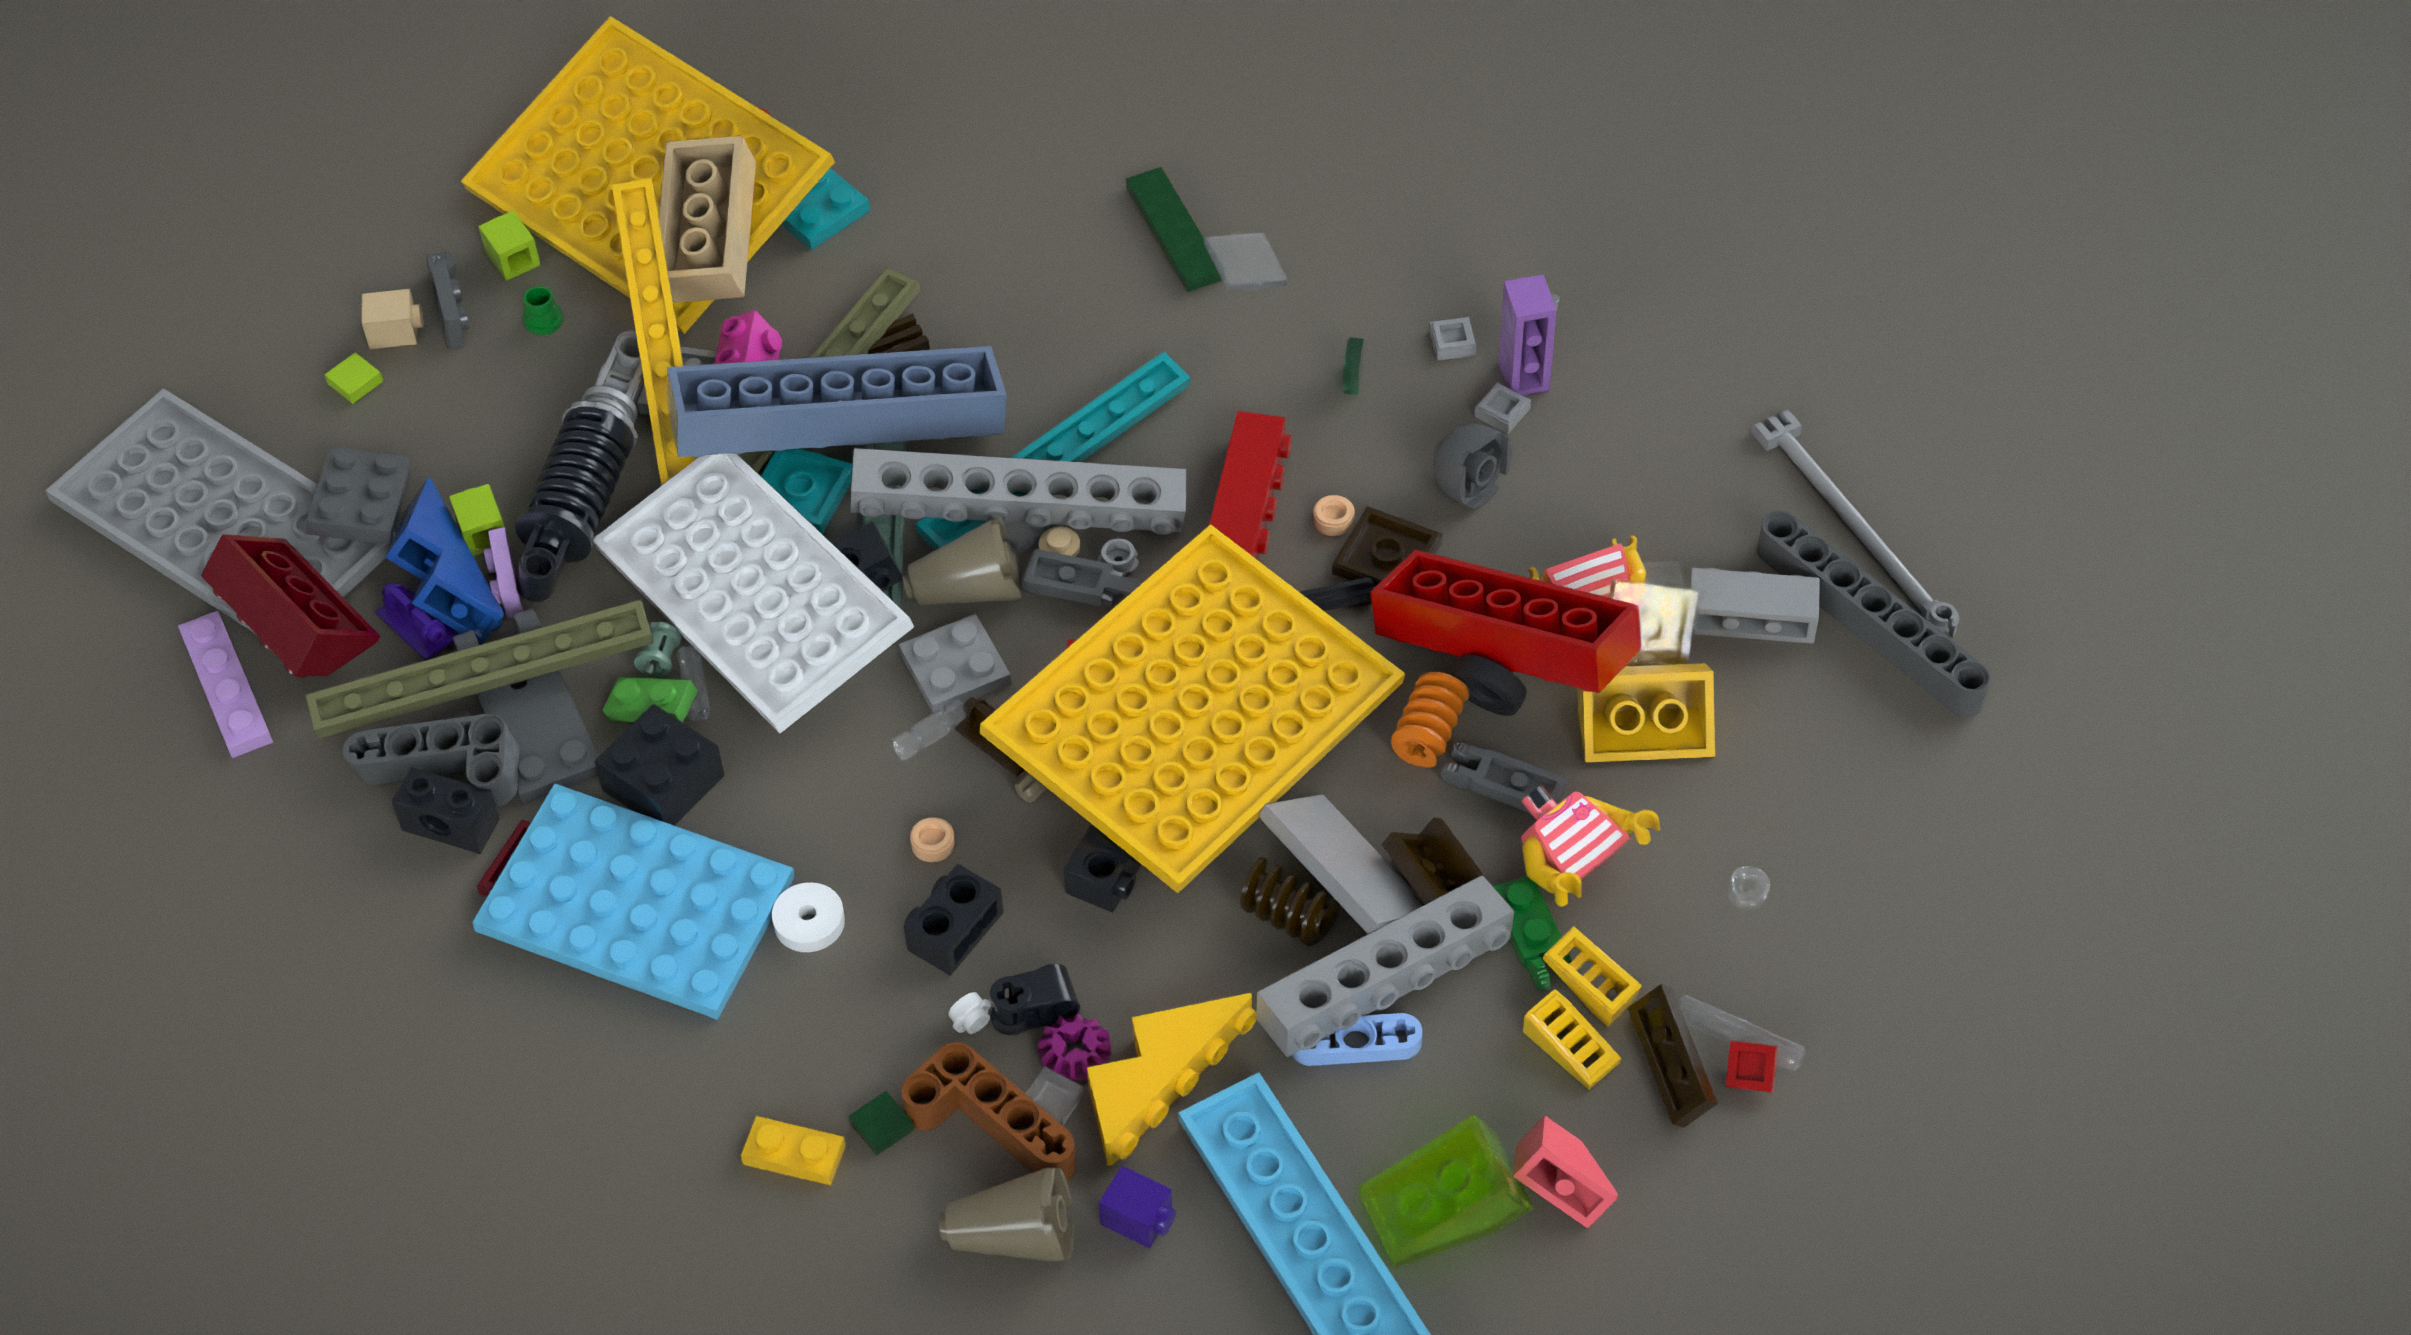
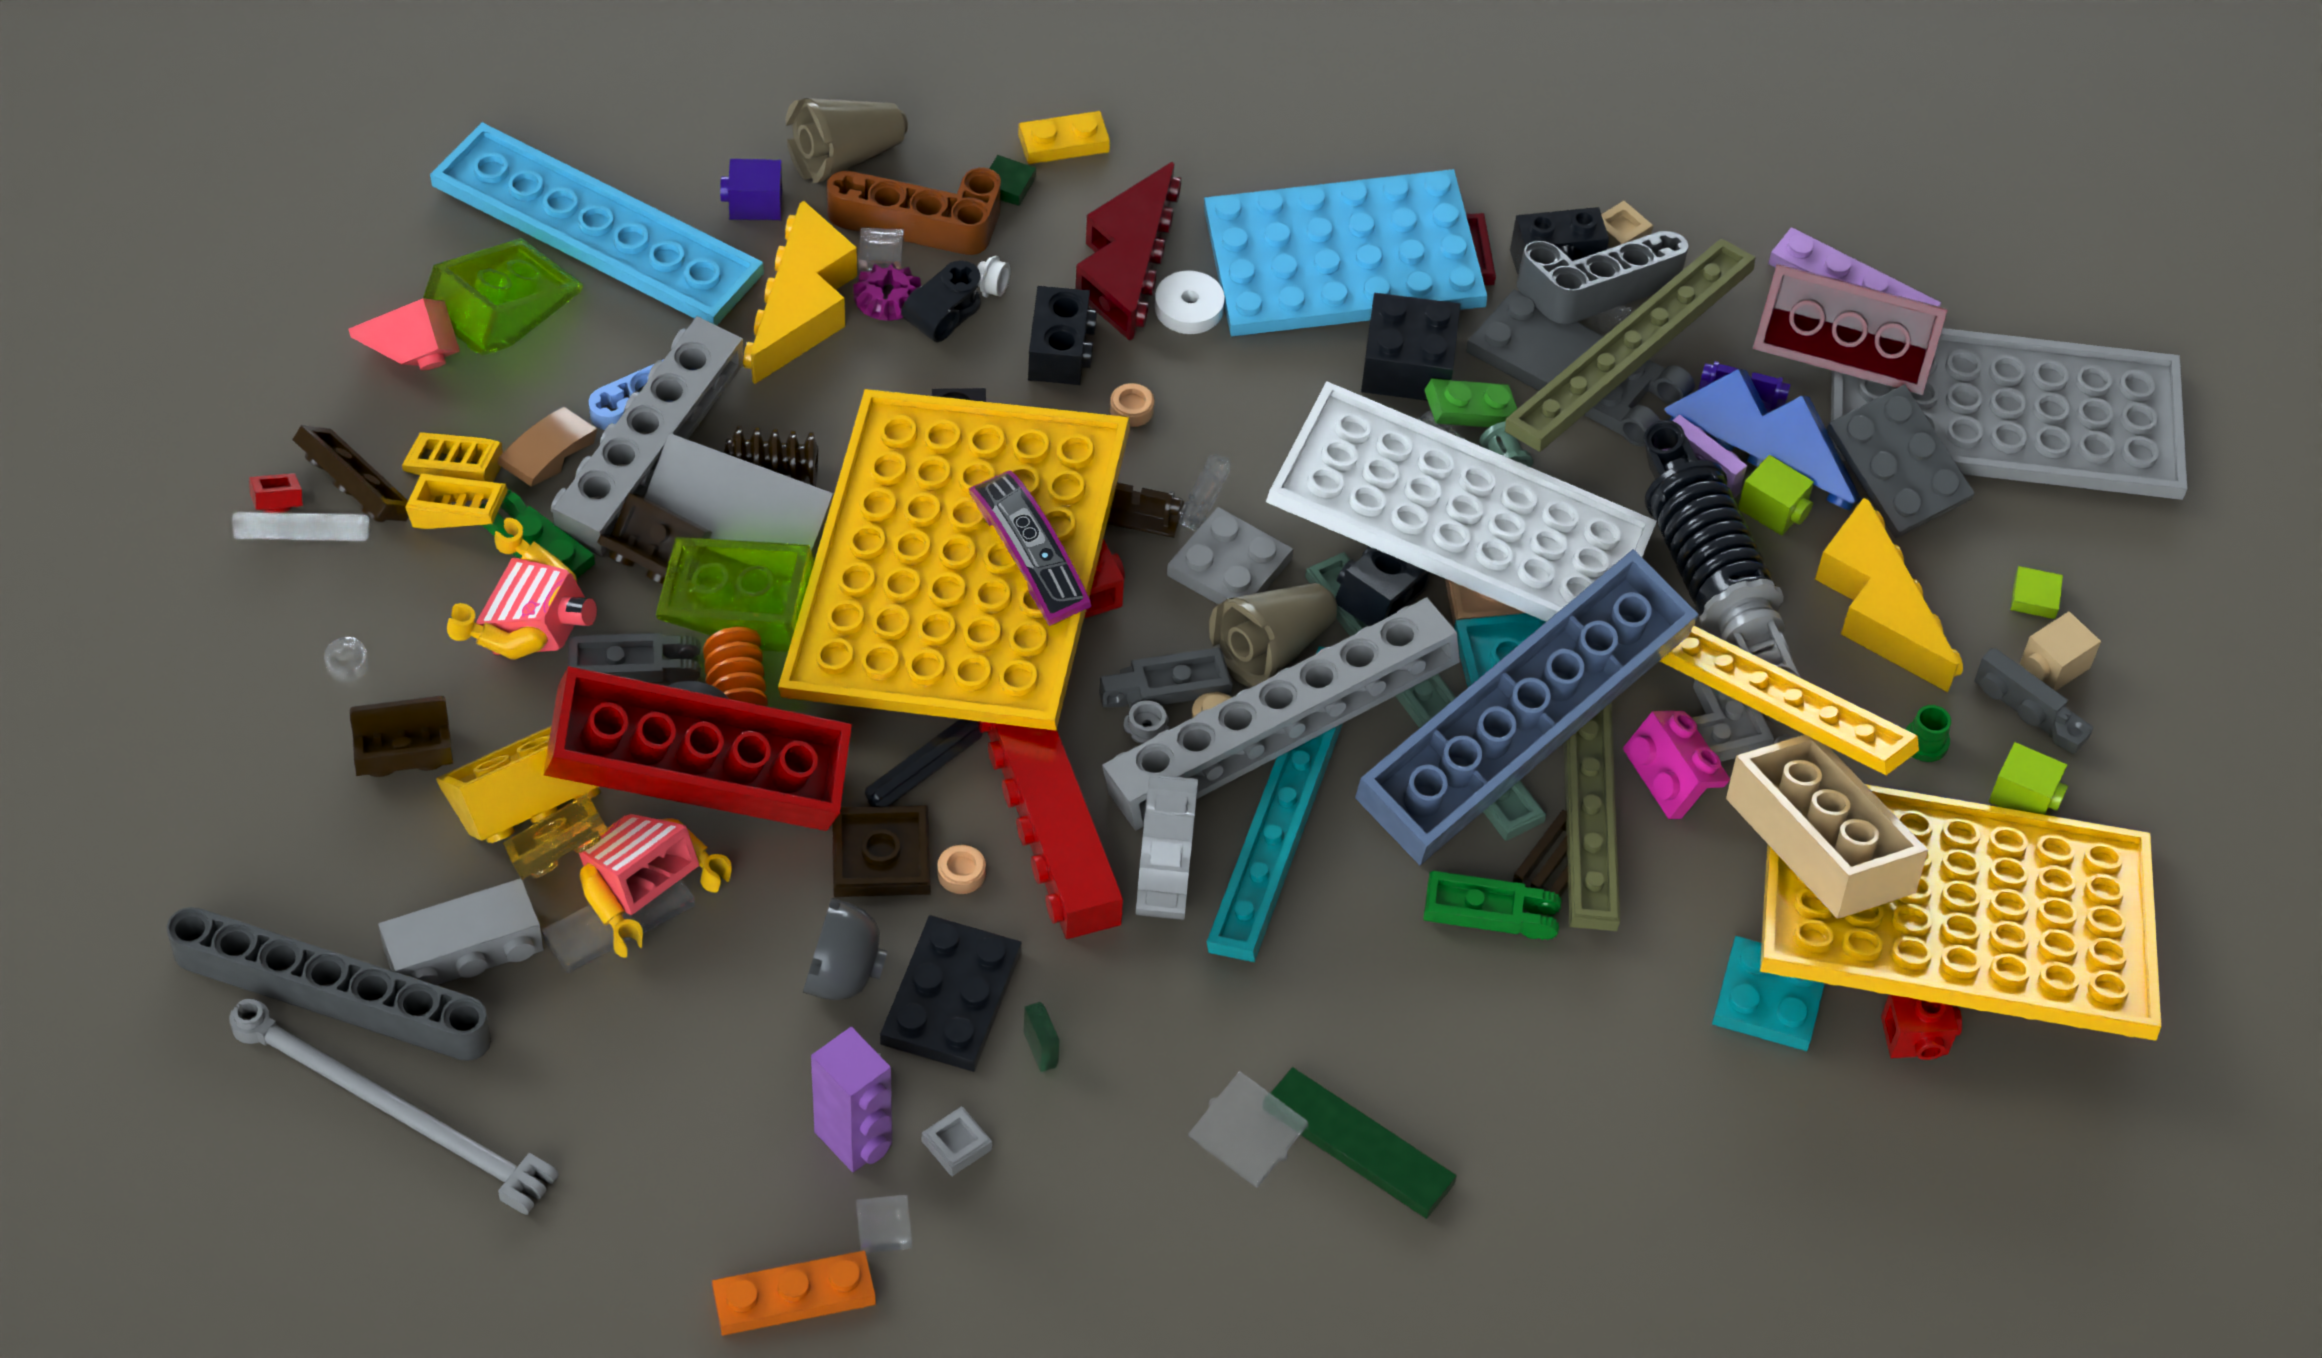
camera: 145 degrees right, 0 degrees up
(372, 812) = (1625, 224): none -> tan plate
(478, 405) = (1887, 603): none -> yellow slope
(813, 994) = (1126, 246): none -> dark red slope
(963, 325) = (1491, 905): none -> green hinge
(1139, 661) = (1032, 545): none -> slope
(1184, 414) = (1166, 847): none -> light grey connector
(1386, 774) = (736, 585): none -> clear neon green slope
(1394, 433) = (951, 993): none -> black plate
(1481, 1010) = (543, 447): none -> medium nougat slope
(1621, 292) = (793, 1292): none -> orange plate
(1734, 780) = (401, 736): none -> dark brown bracket

